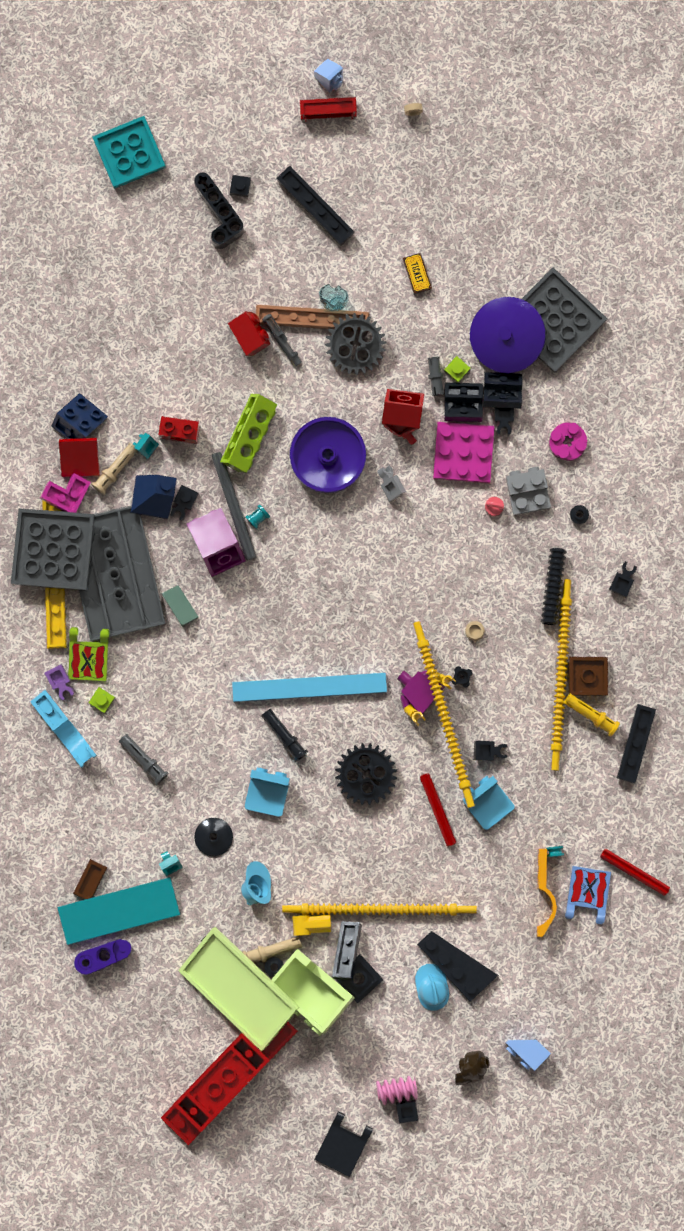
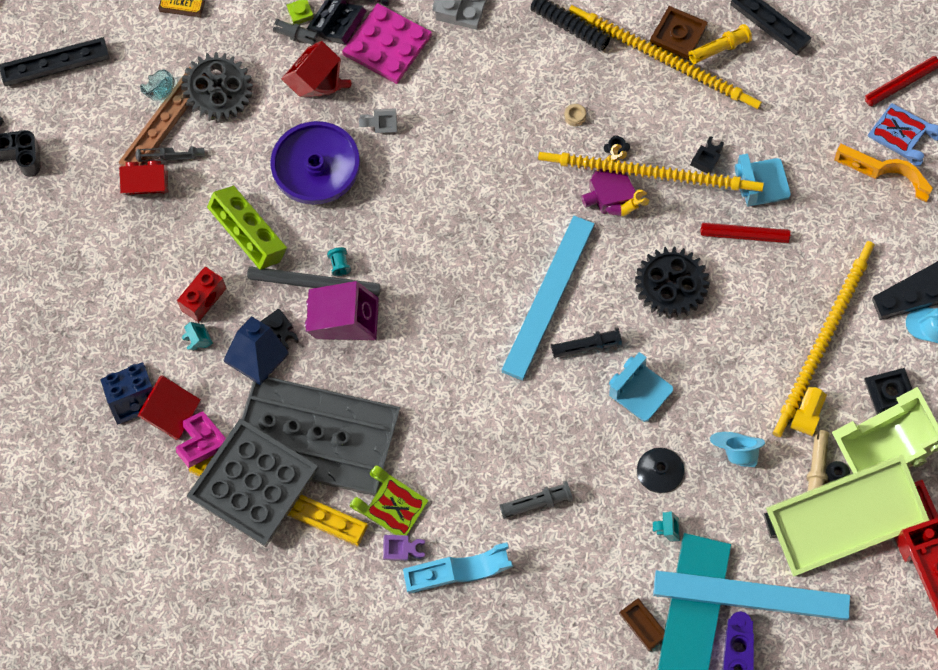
camera: 60 degrees left, 15 degrees down
(101, 700) = (447, 514): lime plate -> none
(109, 475) = (207, 388): tan pin -> none
(147, 947) = (751, 595): none -> medium azure tile
(180, 605) = (389, 385): sand green slope -> none
(346, 950) = (856, 386): plate -> none
(494, 506) = (458, 40): coral tile -> none
(555, 851) = (846, 139): teal bush -> none

